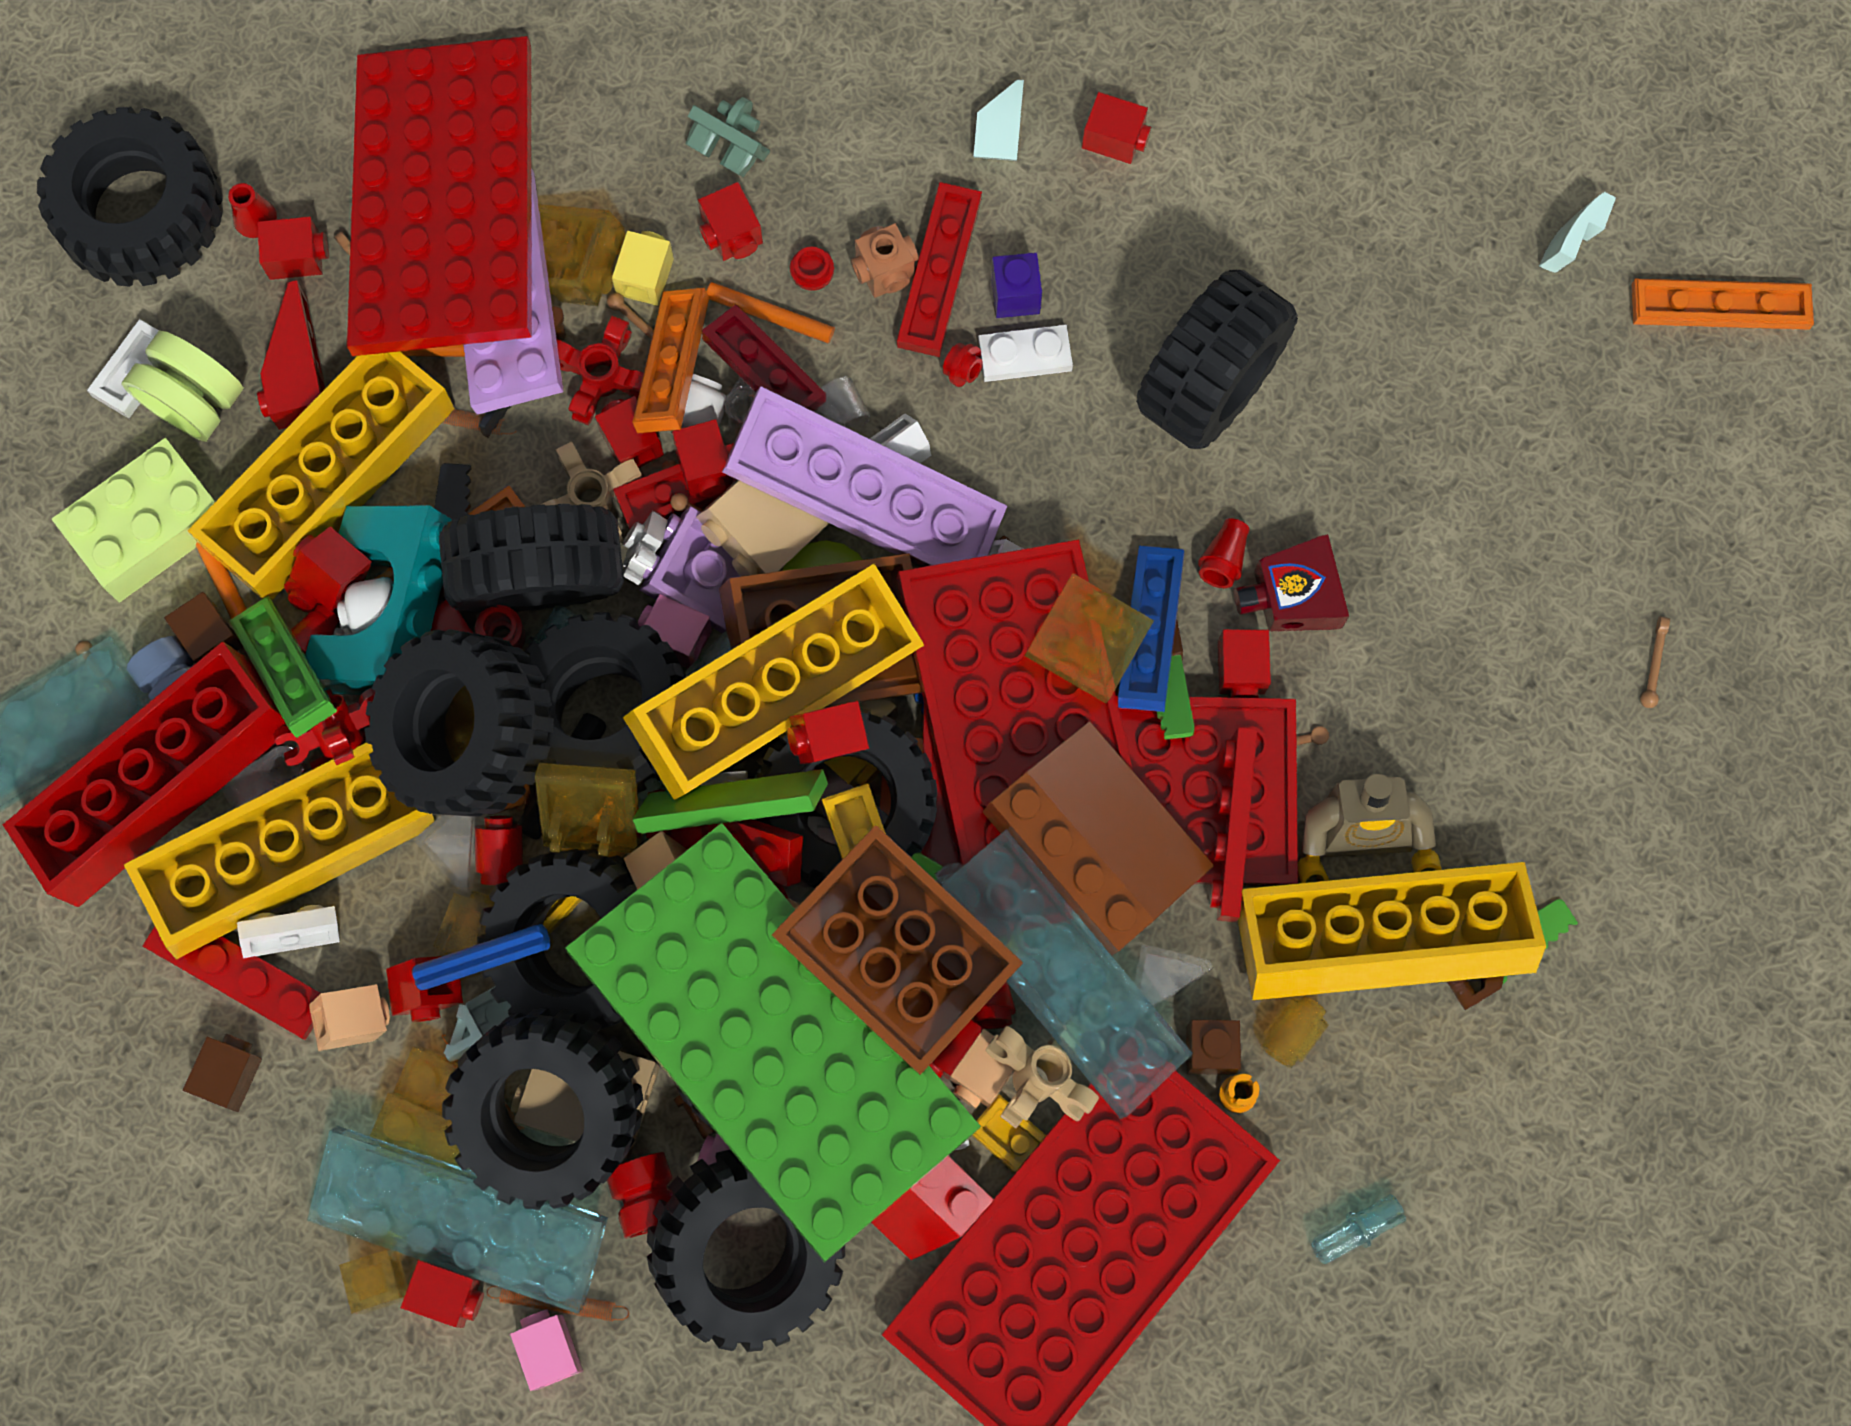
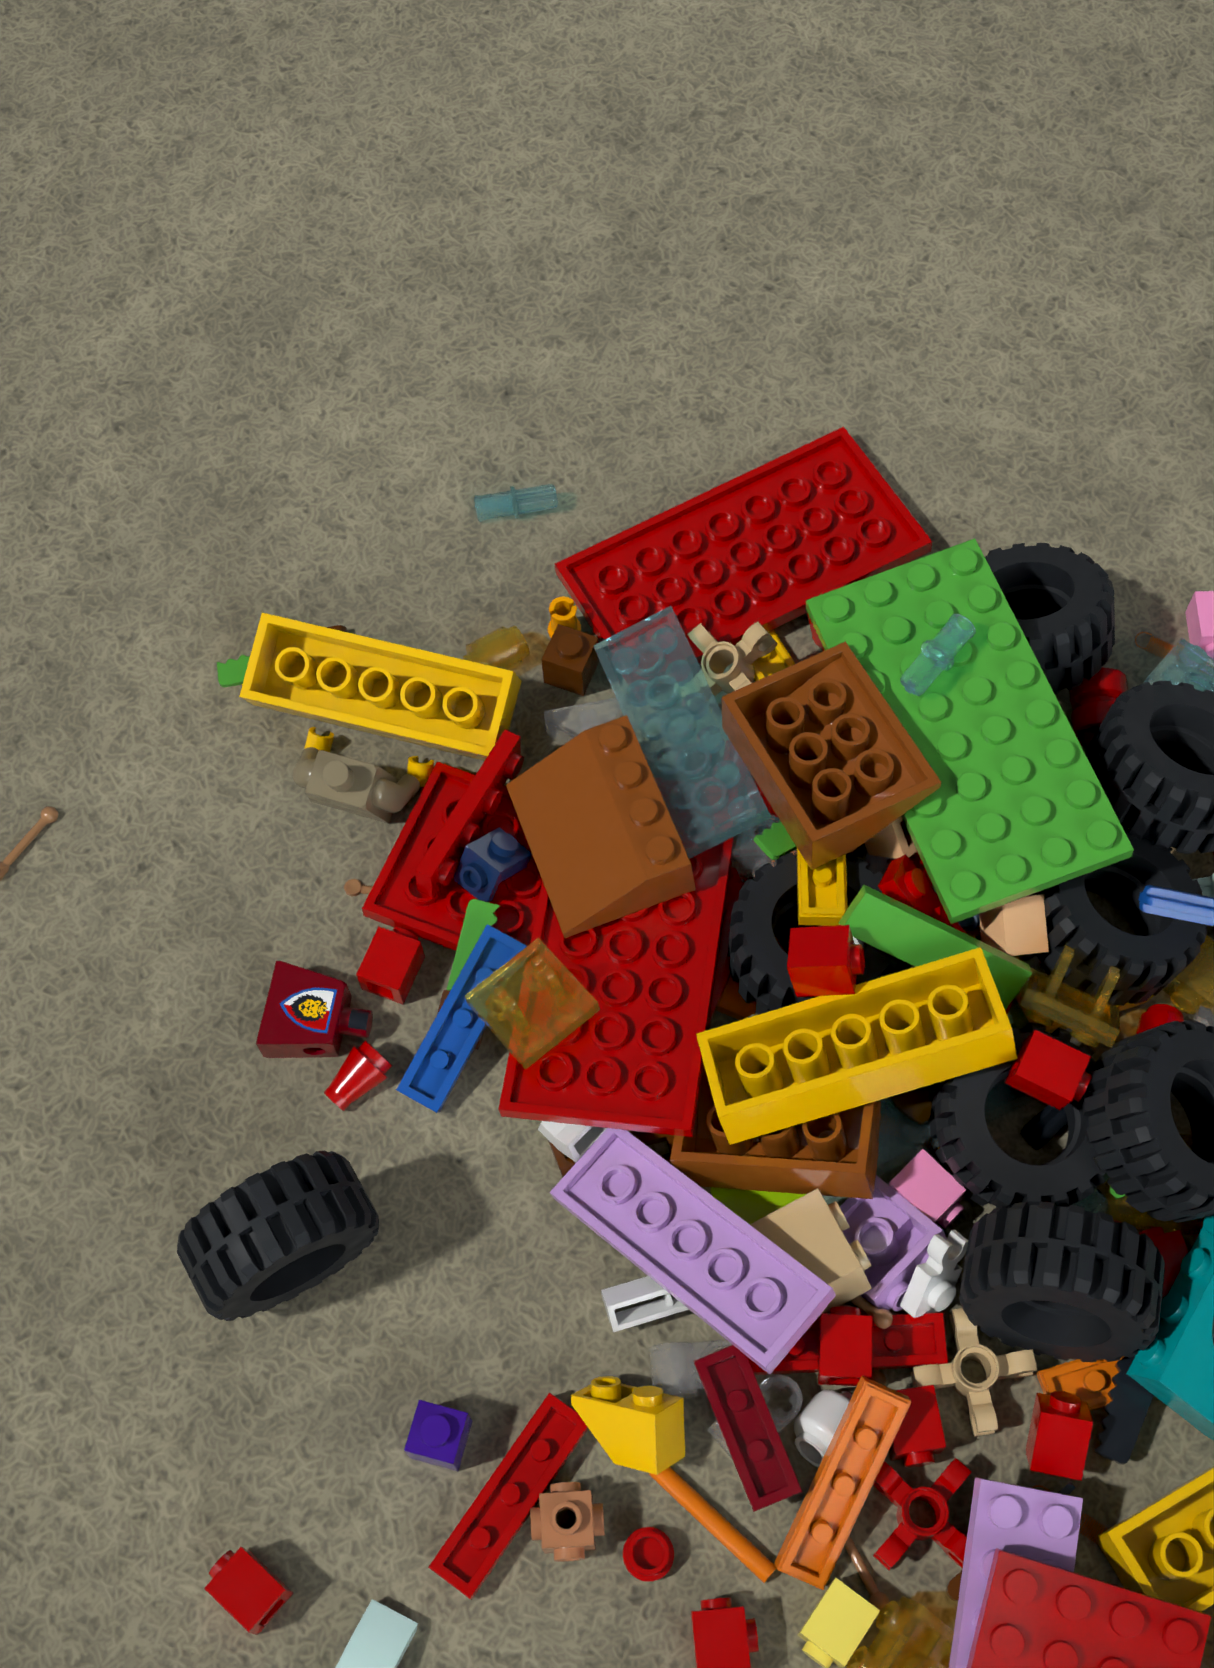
camera: 155 degrees left, 10 degrees down
(503, 464) = (1059, 1435): none -> red brick
(590, 719) = (1049, 1070): none -> red brick
(819, 1082) = (937, 654): none -> clear light blue axle
(861, 348) = (633, 1424): none -> yellow slope
(962, 364) = (530, 1371): red plate -> none
(1025, 353) = (459, 1364): white plate -> none
(1191, 782) = (490, 862): none -> dark blue bracket

